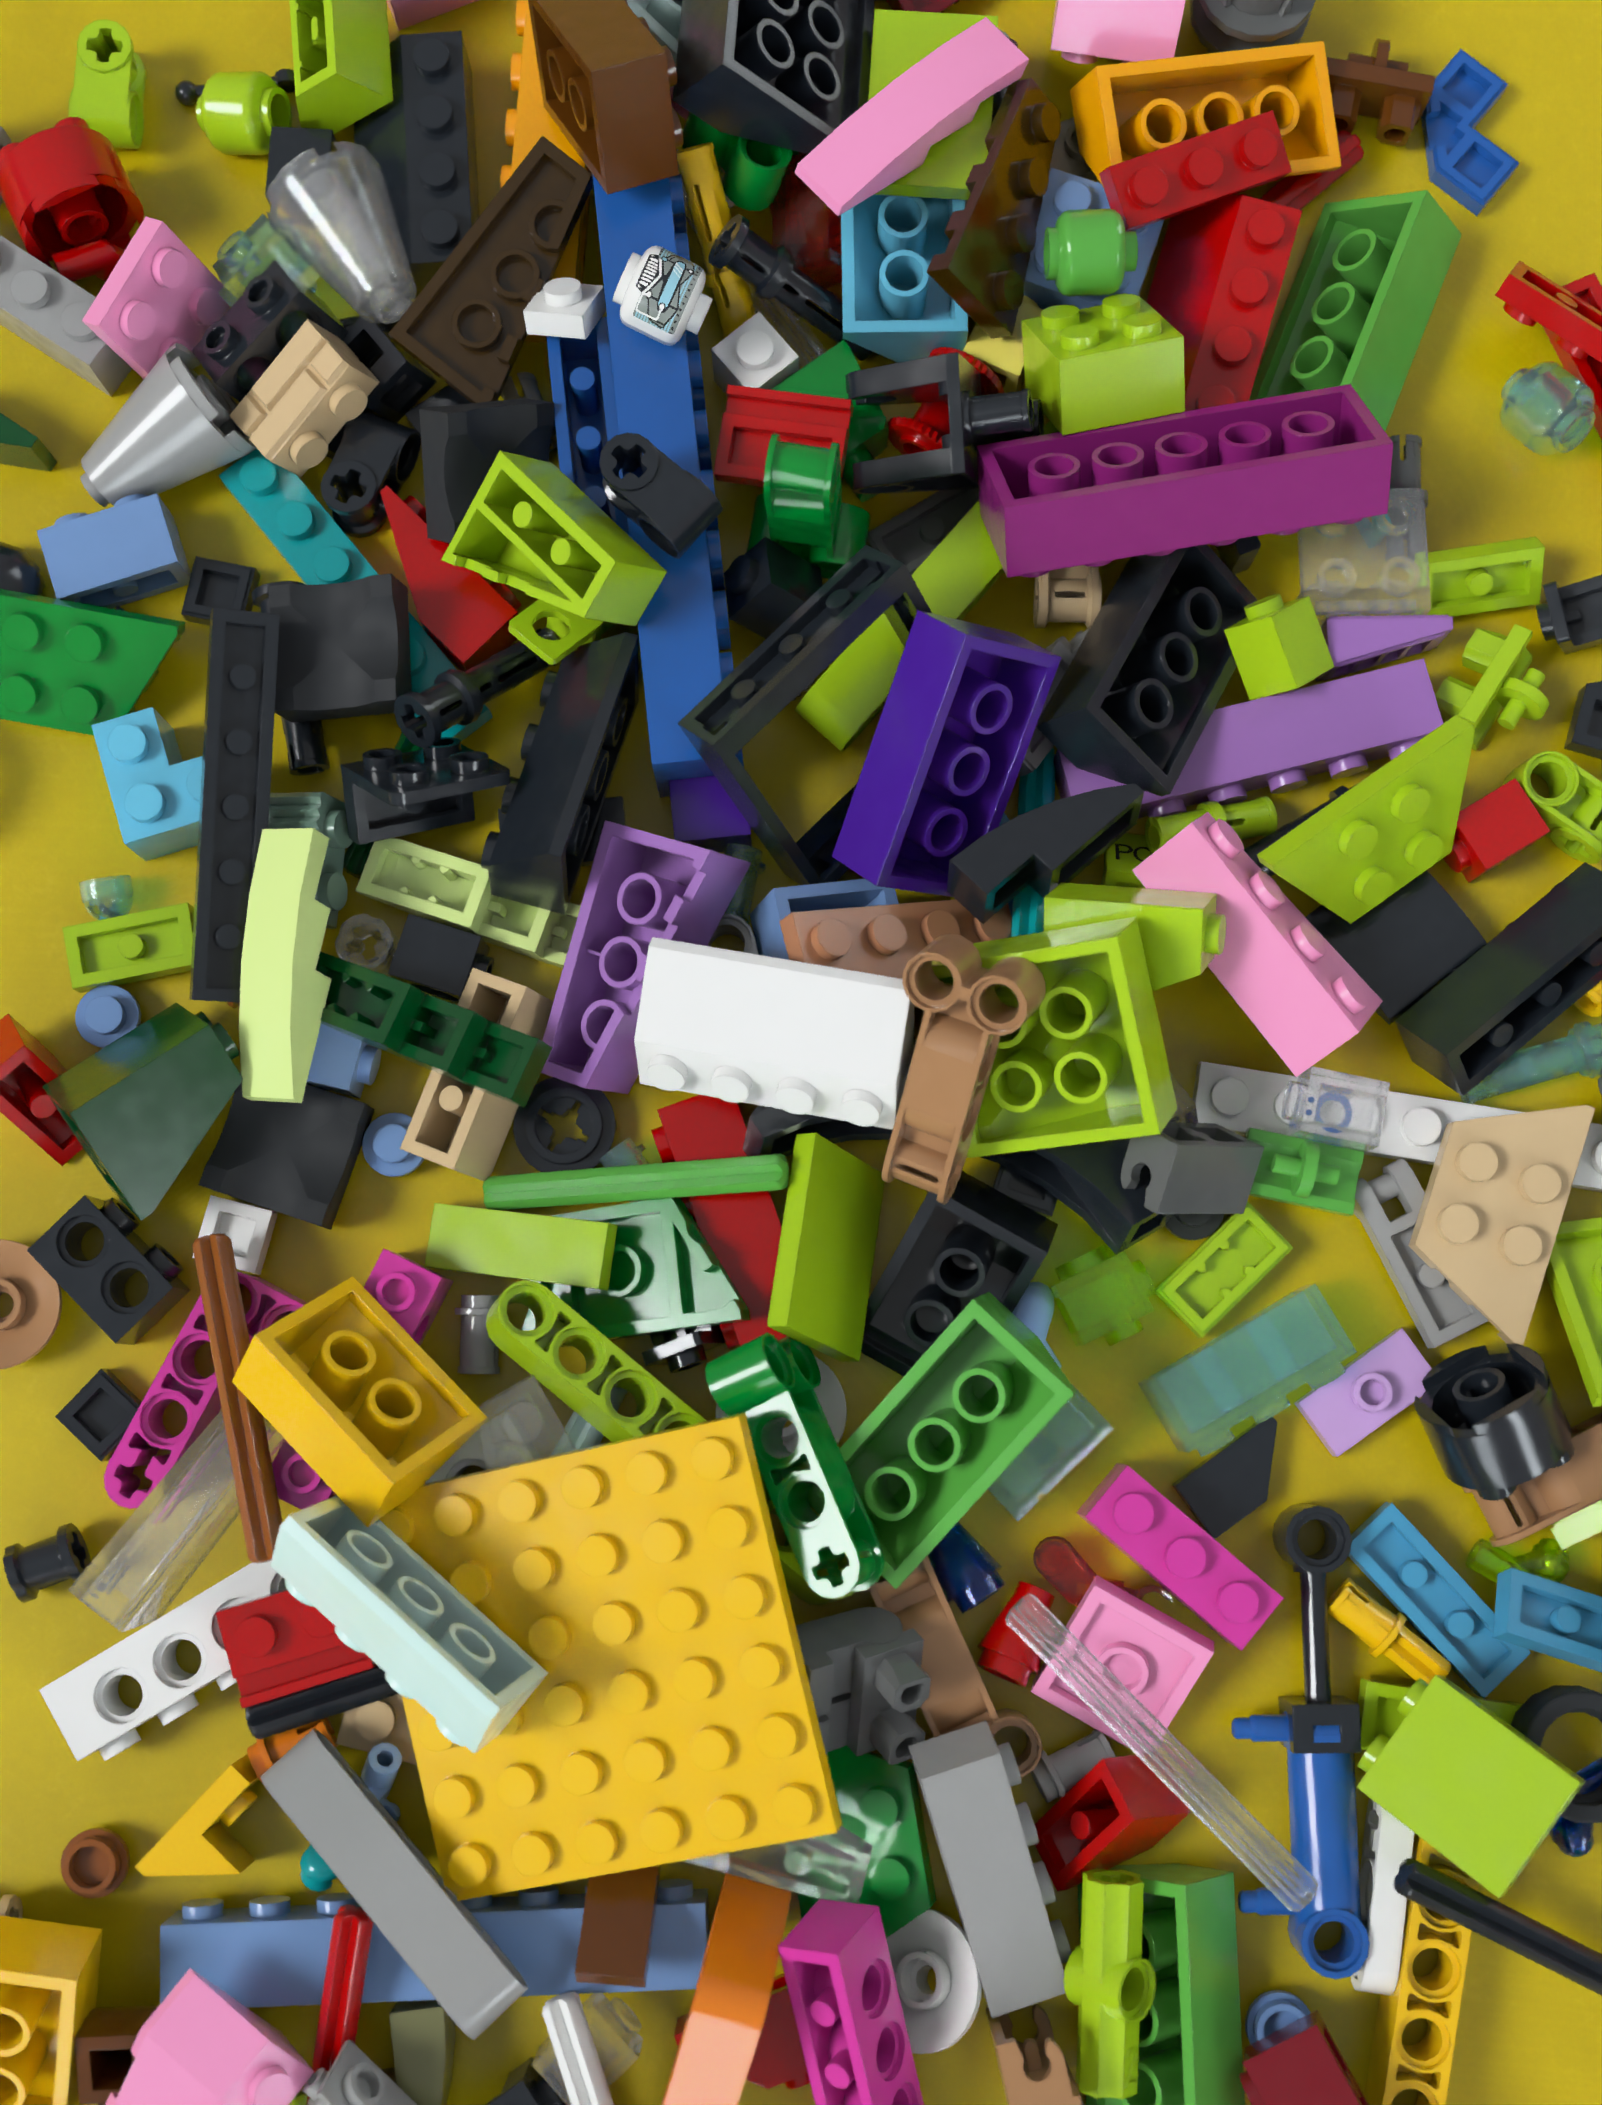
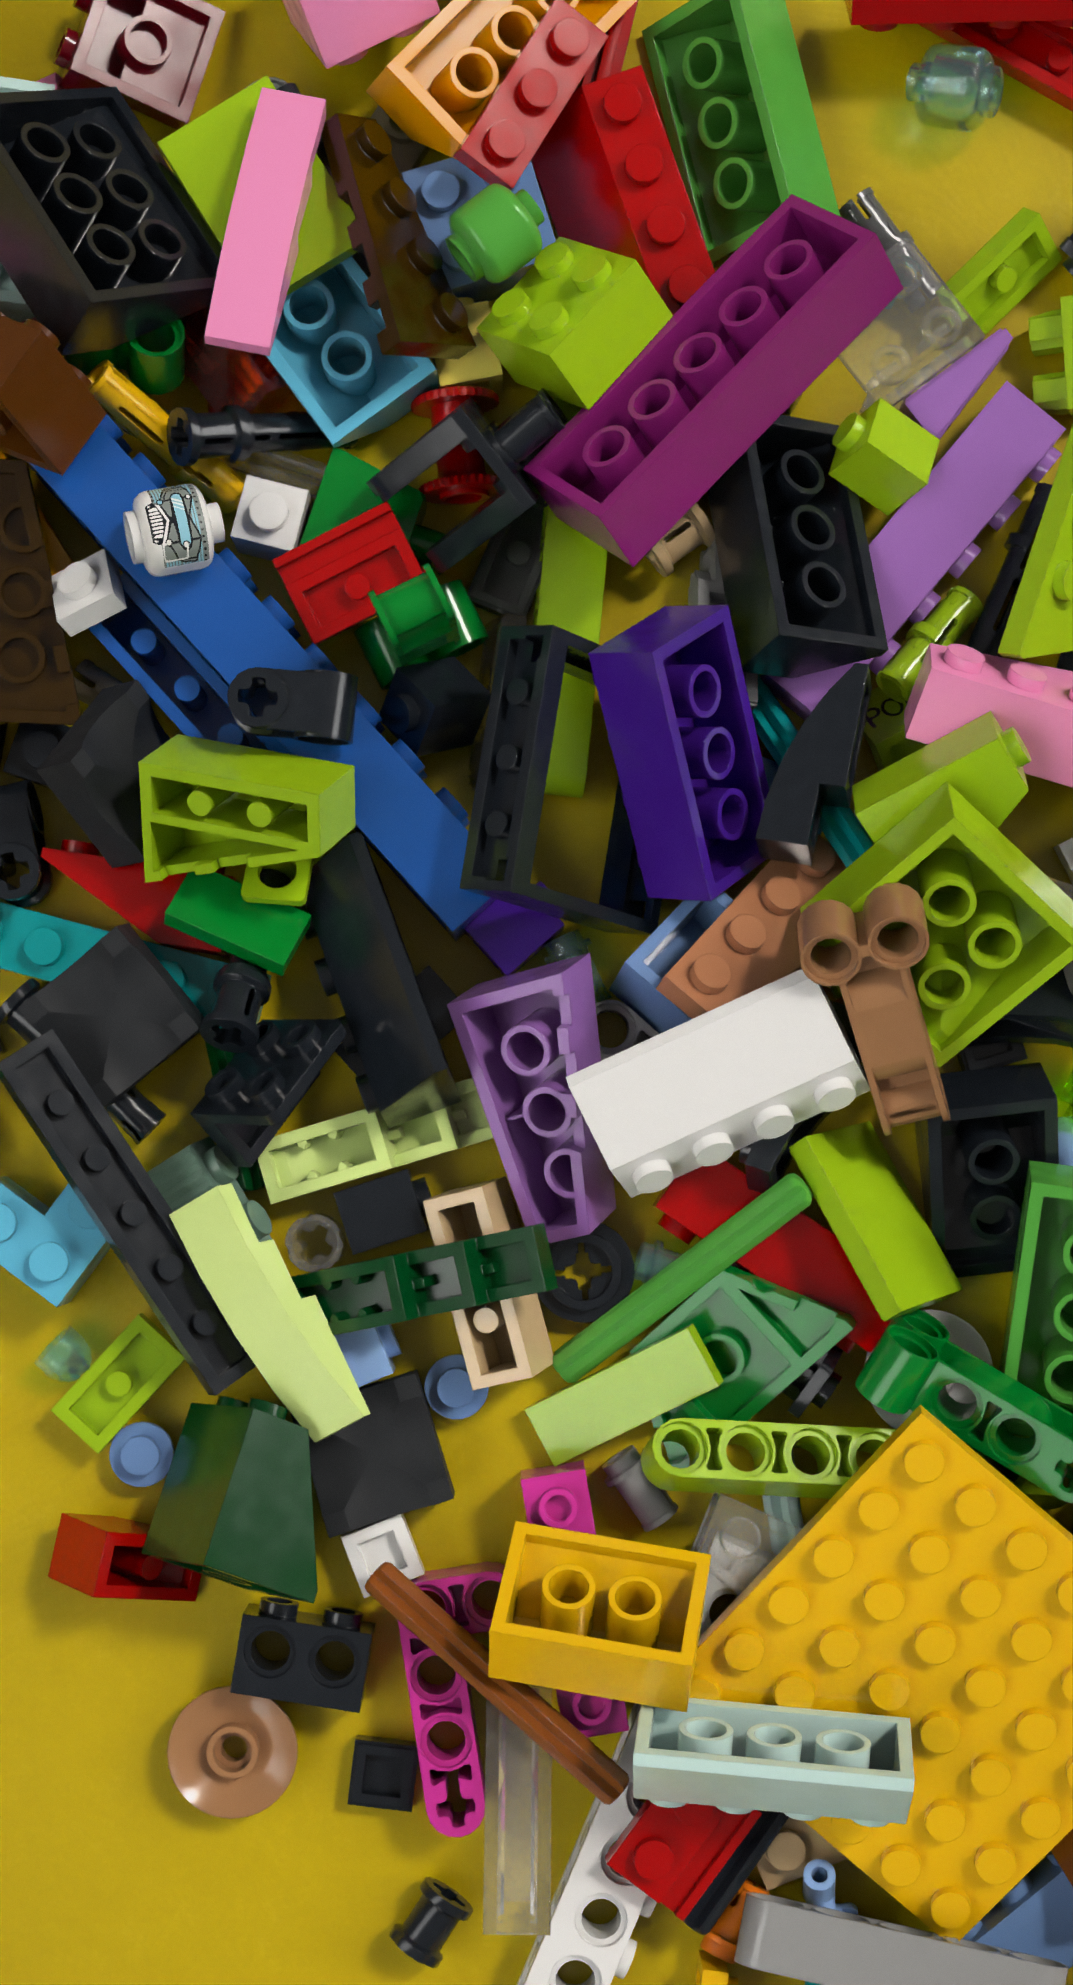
camera: 40 degrees left, 5 degrees up
(479, 624) = (215, 913): none -> green tile

